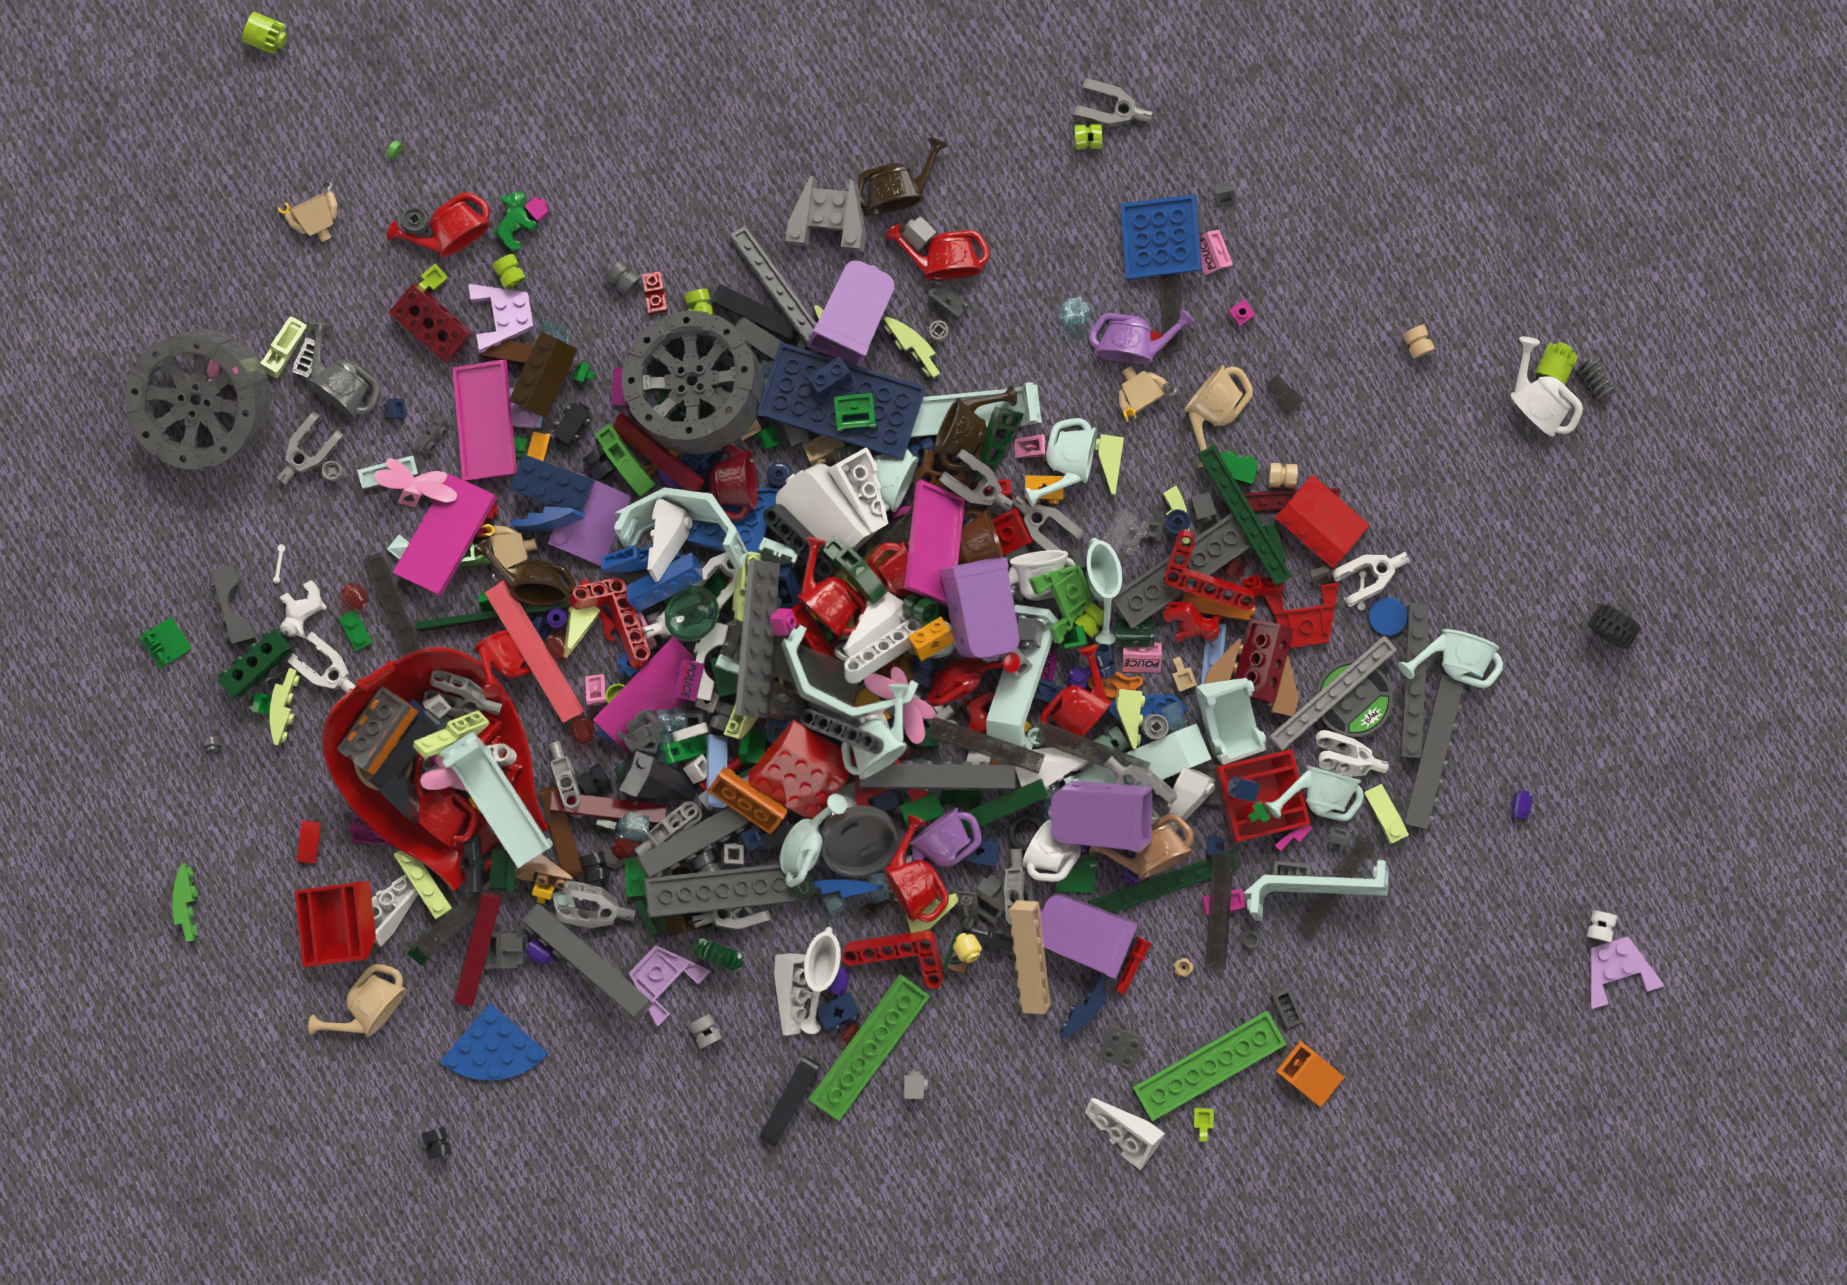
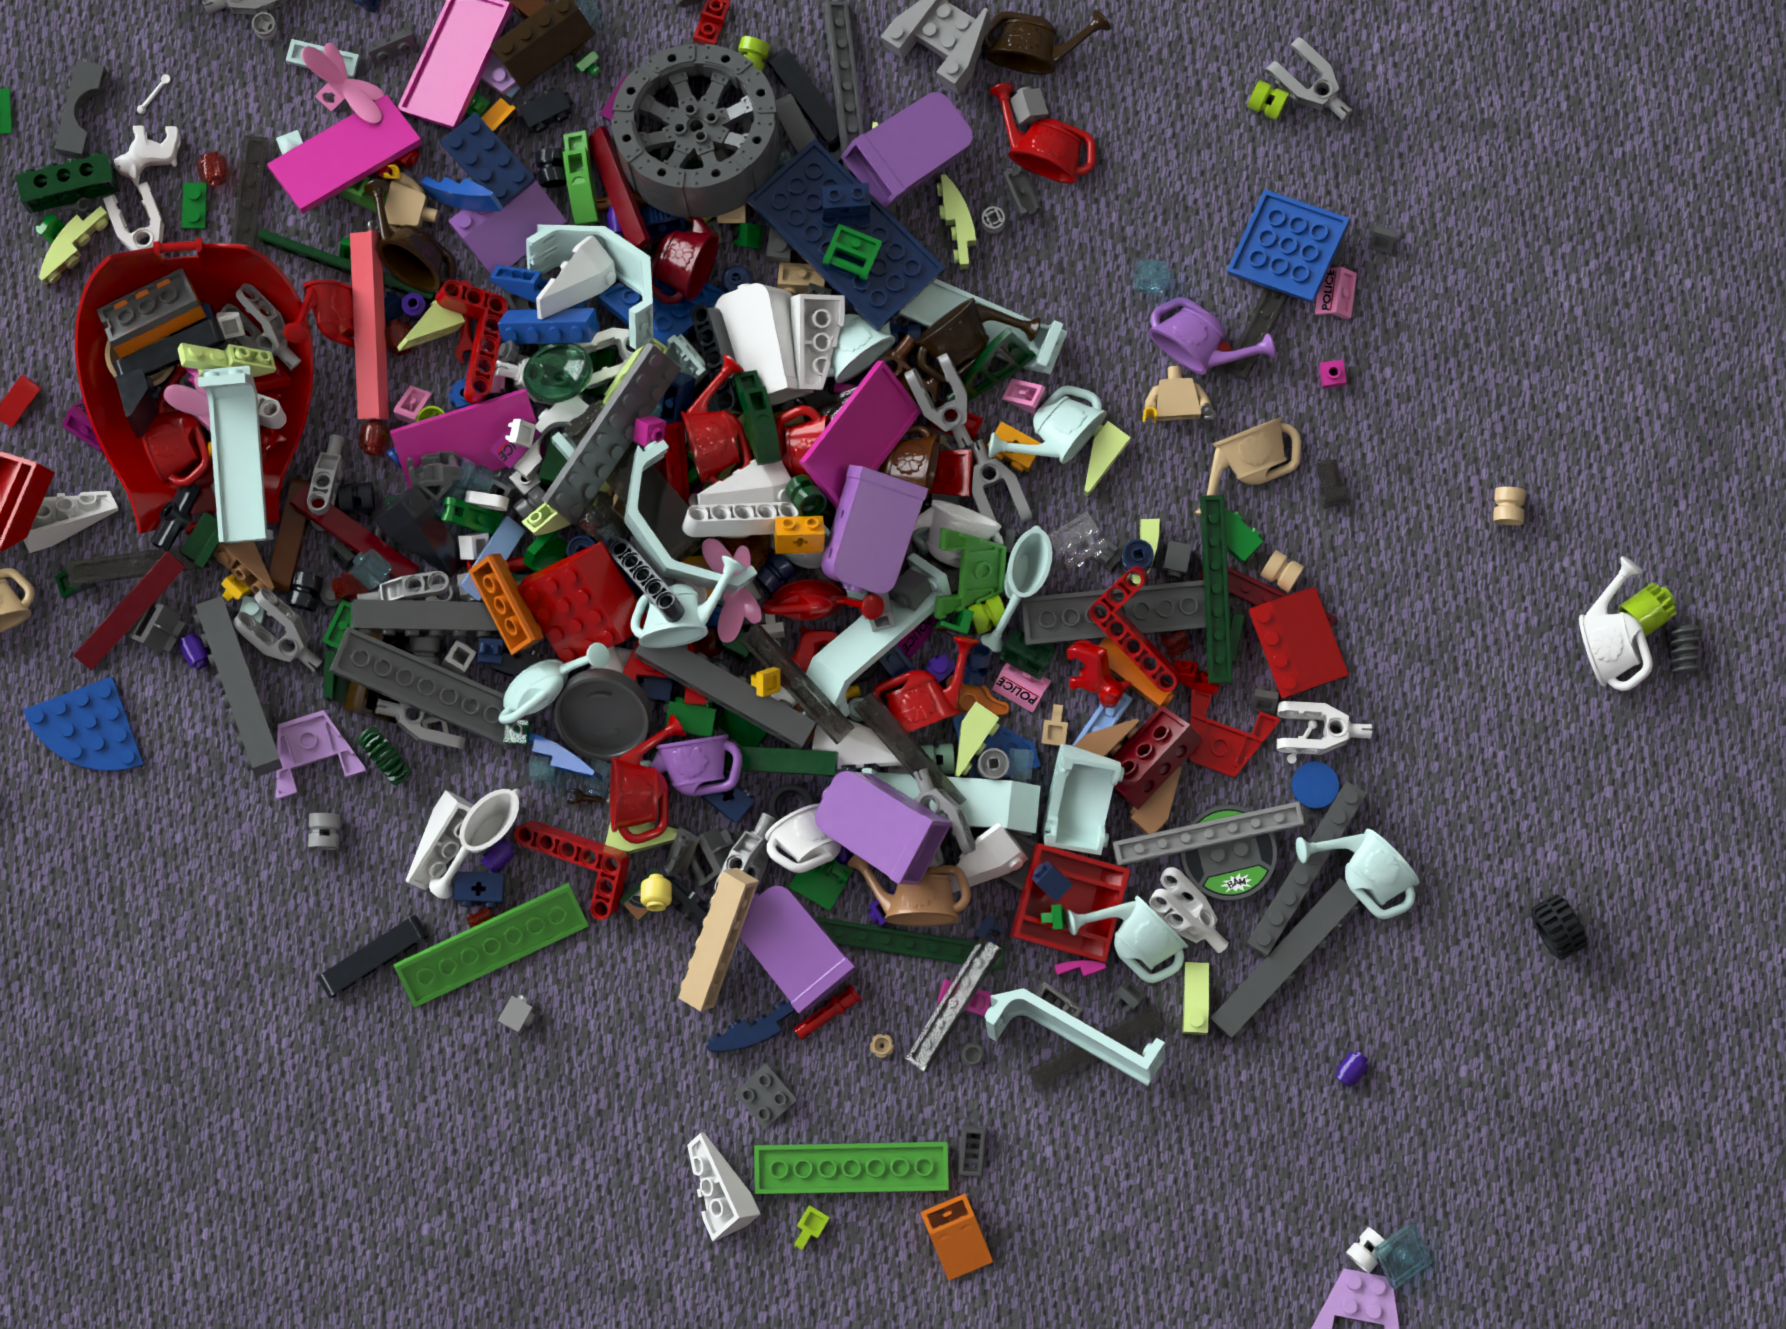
camera: 25 degrees right, 5 degrees down
(423, 884) = (112, 511): yellowish green arch -> none
(646, 616) = (508, 351): none -> dark grey plate
(691, 672) = (521, 433): none -> white tile
(965, 756) = (766, 681): none -> yellow tile
(1628, 917) = (1403, 1255): none -> clear light blue plate

